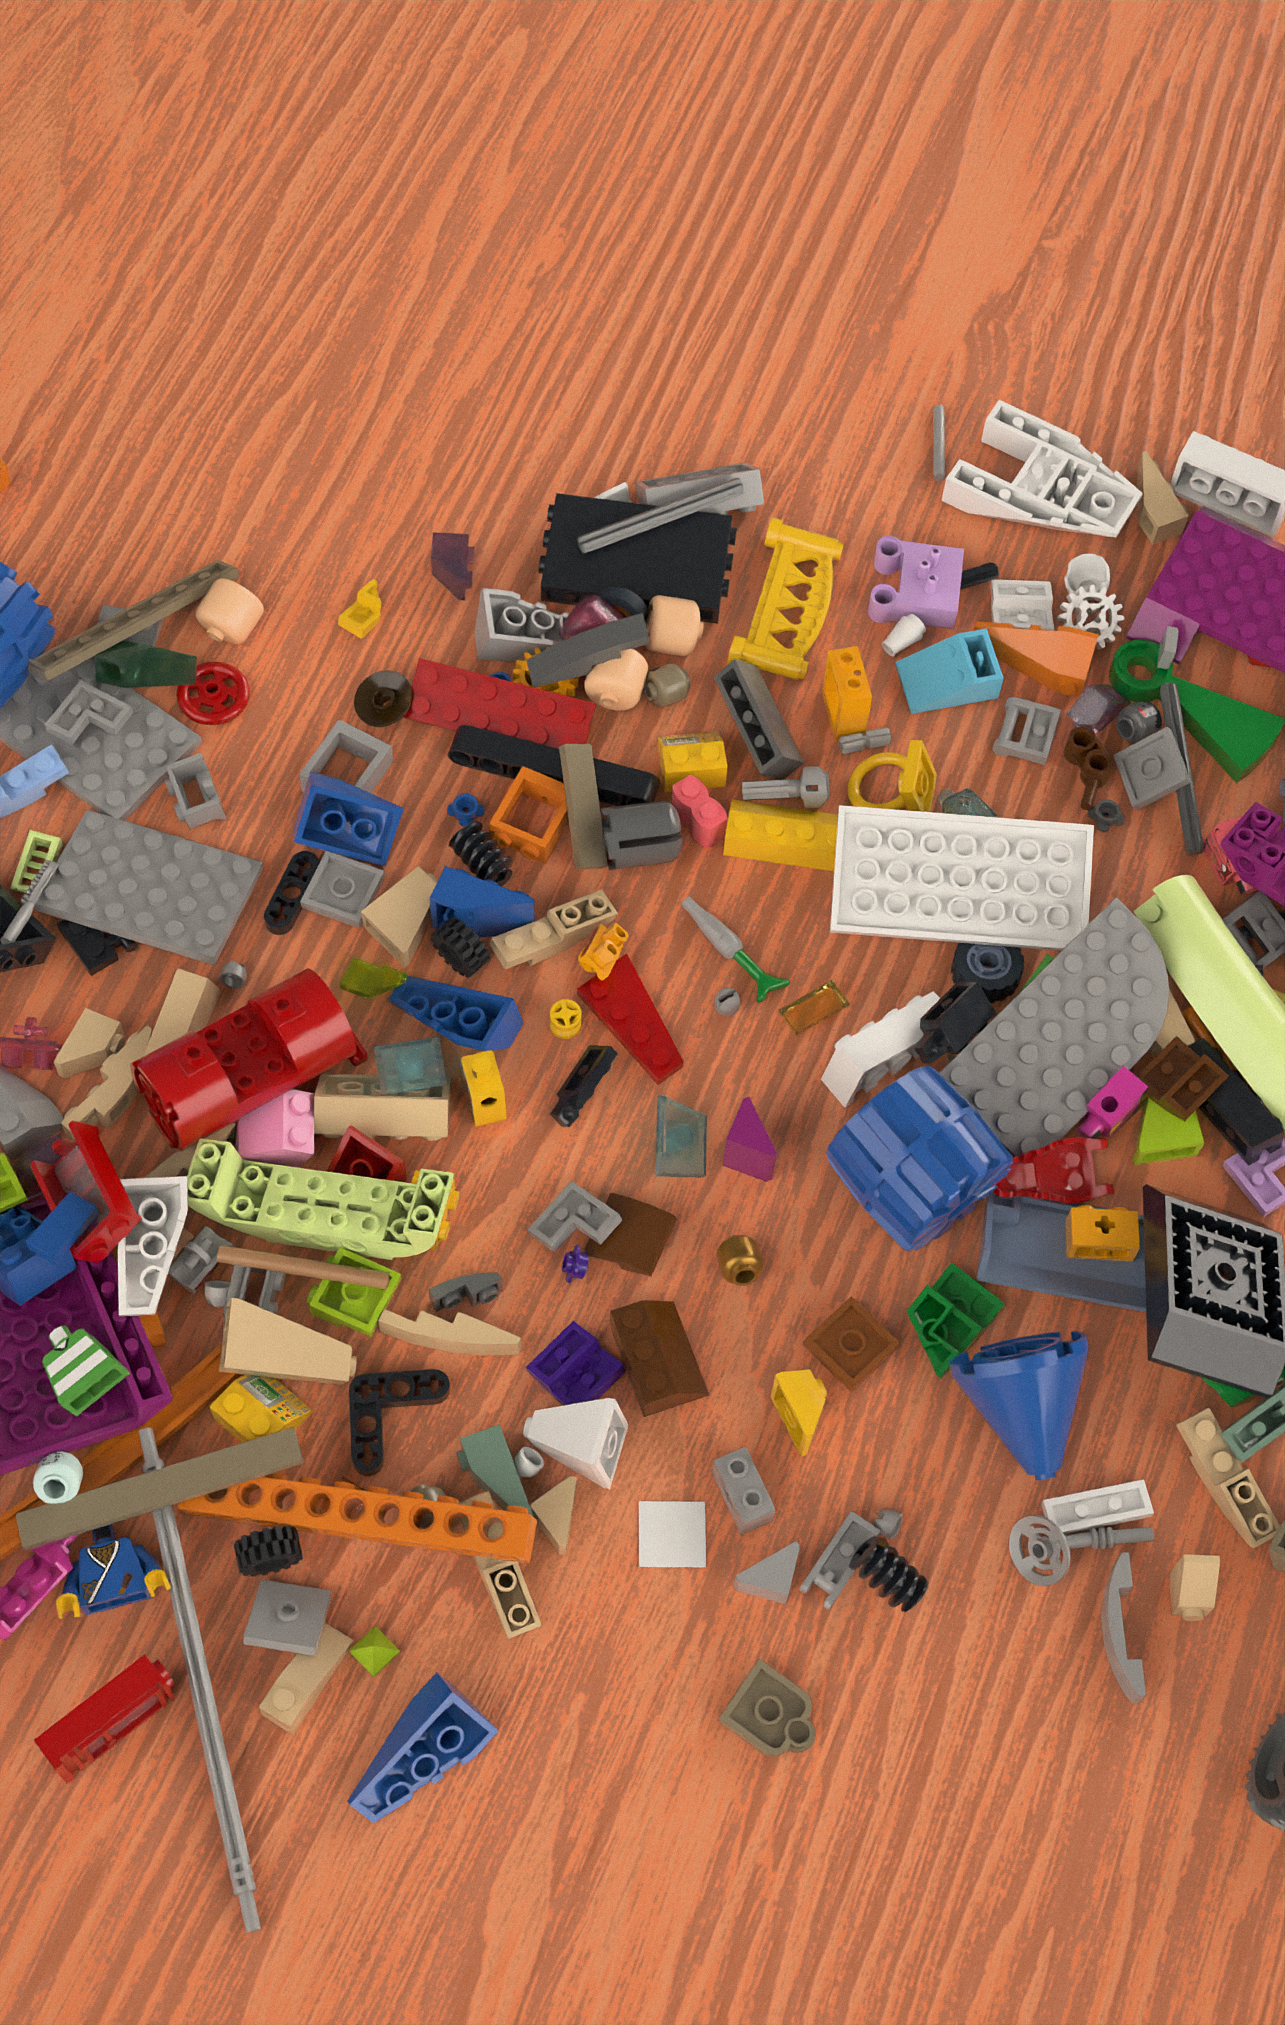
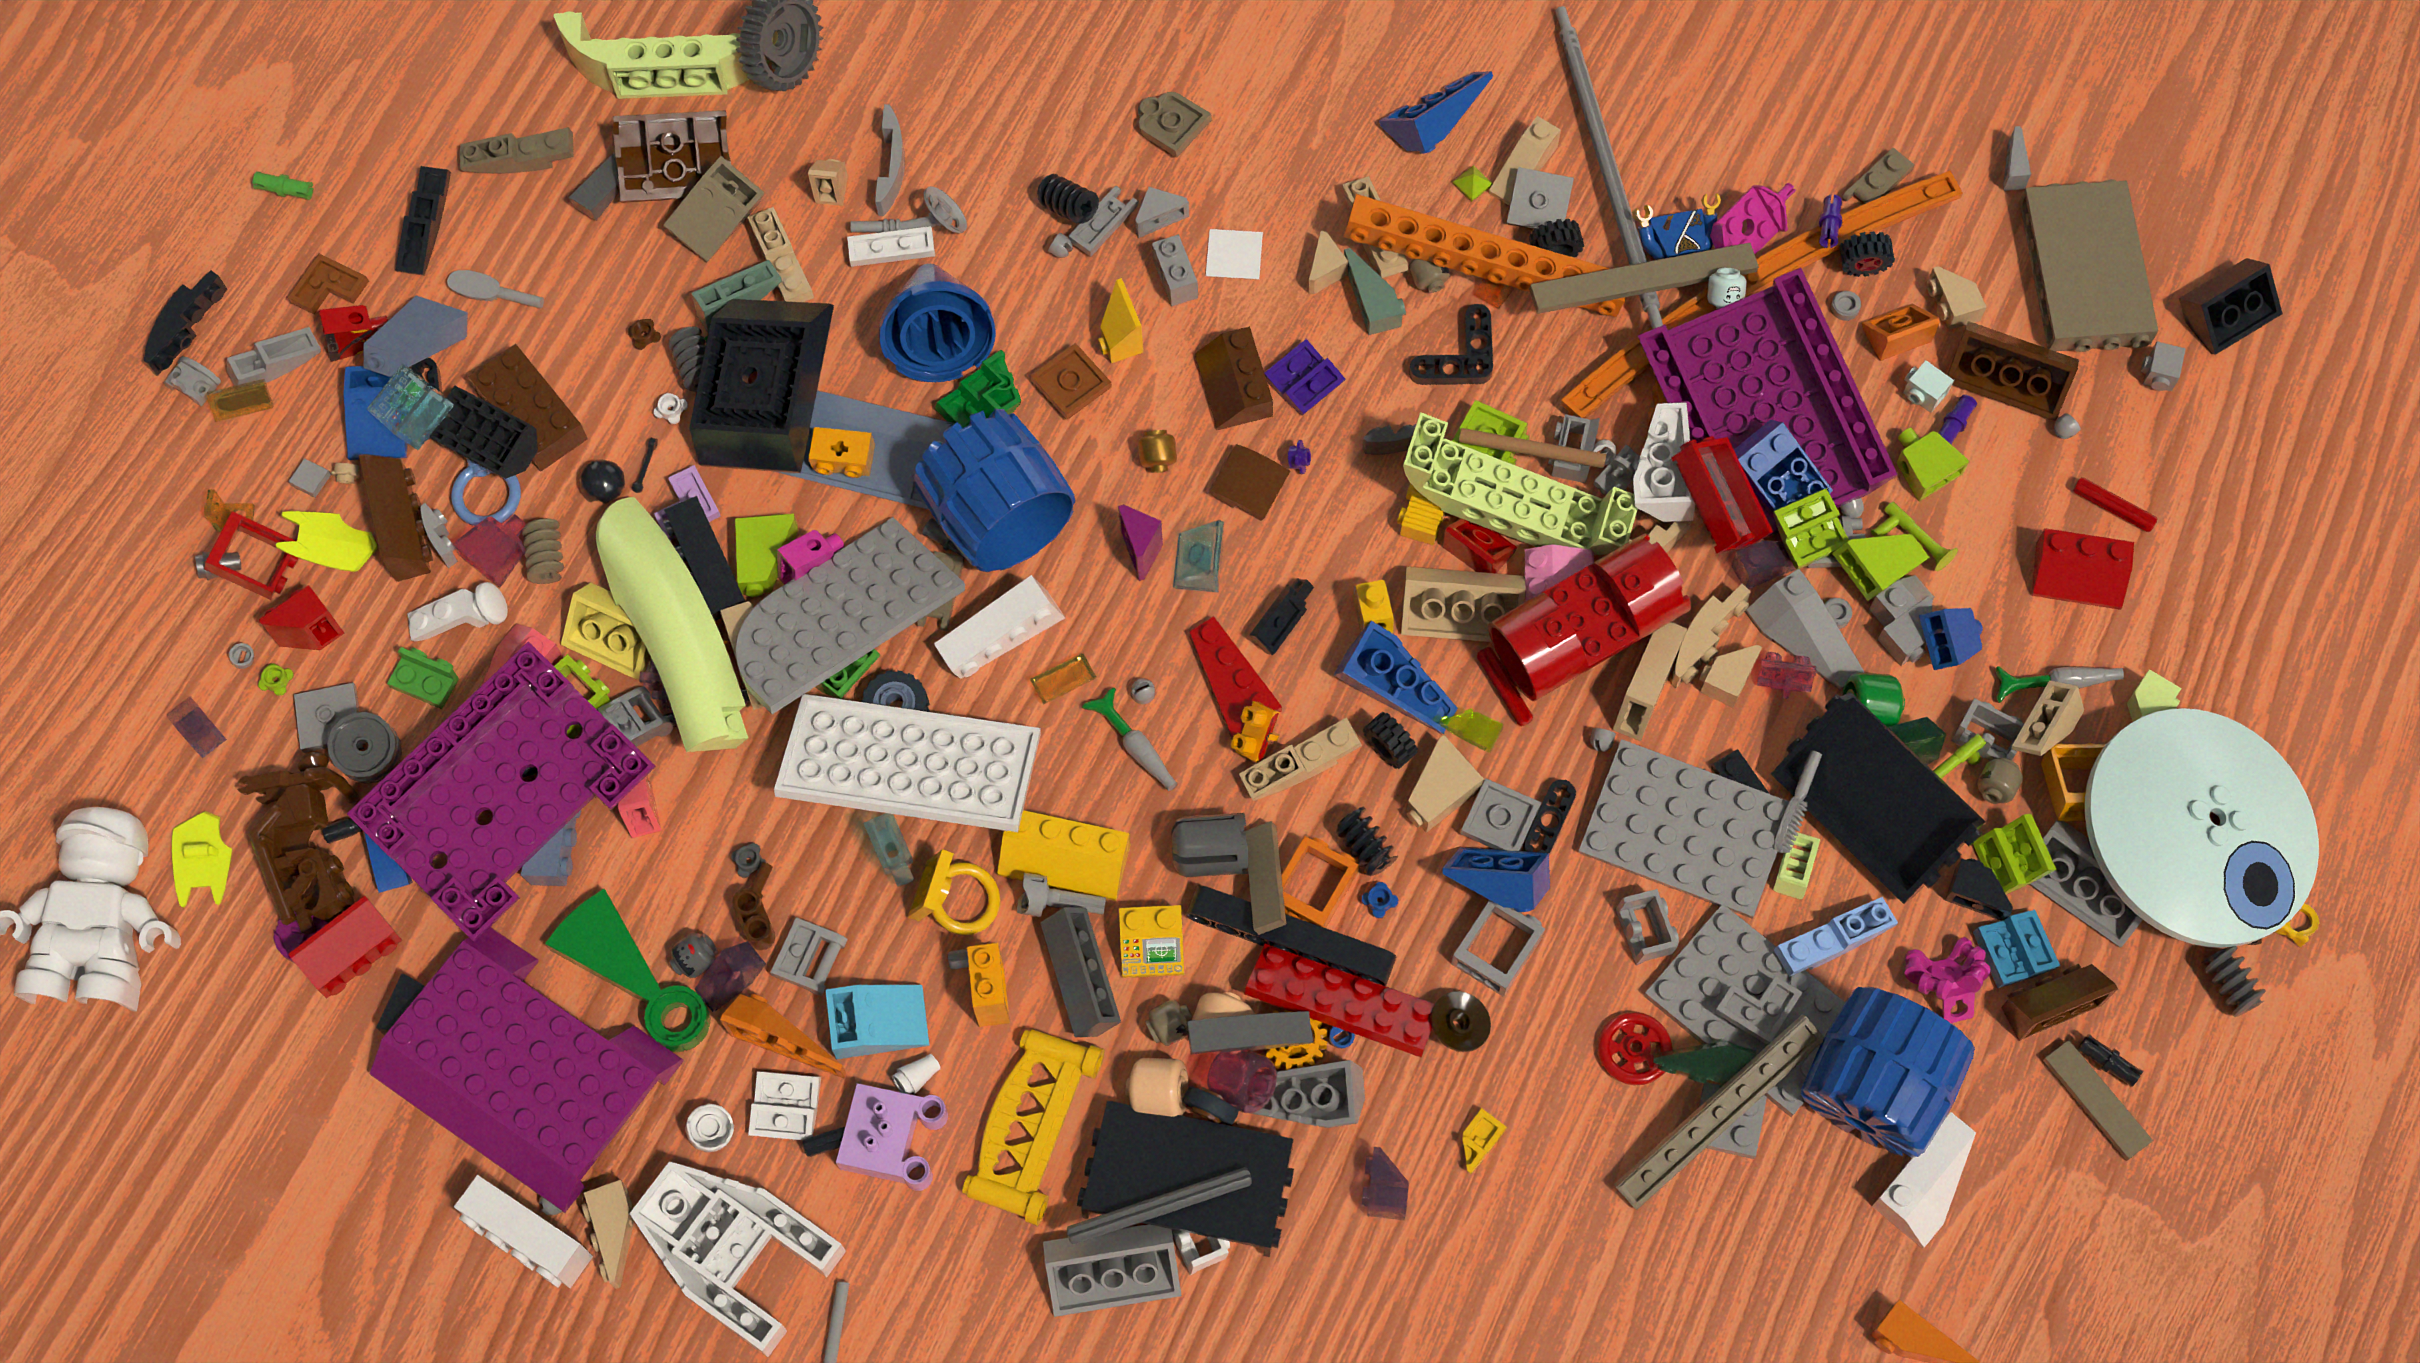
camera: 170 degrees left, 5 degrees up
(62, 1228) = (1738, 458): blue tile -> none
(80, 1369) = (1714, 357): bright green torso -> none
(106, 1717) = (1675, 133): red door -> none
(229, 612) = (1621, 1130): light nougat head -> none
(258, 1408) = (1566, 352): yellow slope -> none
(276, 1347) = (1549, 386): tan slope -> none
(410, 1065) = (1438, 622): clear light blue slope -> none
(462, 1336) = (1398, 402): tan slope -> none
(479, 904) = (1371, 775): blue slope -> none
(528, 1462) = (1346, 304): white hinge -> none
(568, 1012) = (1295, 670): yellow wheel -> none
(574, 1210) = (1294, 498): light grey plate -> none
(581, 1437) = (1306, 313): white slope -> none
(699, 811) = (1147, 873): coral brick -> none
(953, 1021) = (941, 625): black hinge -> none
(1056, 1172) = (870, 506): red animal -> none
(1083, 609) = (716, 1077): white gear -> none
(1152, 768) = (694, 895): light grey plate -> none
(1167, 647) = (648, 1019): light grey tile -> none
(1181, 1079) = (744, 568): reddish brown slope -> none
(1186, 794) = (663, 899): dark grey axle -> none

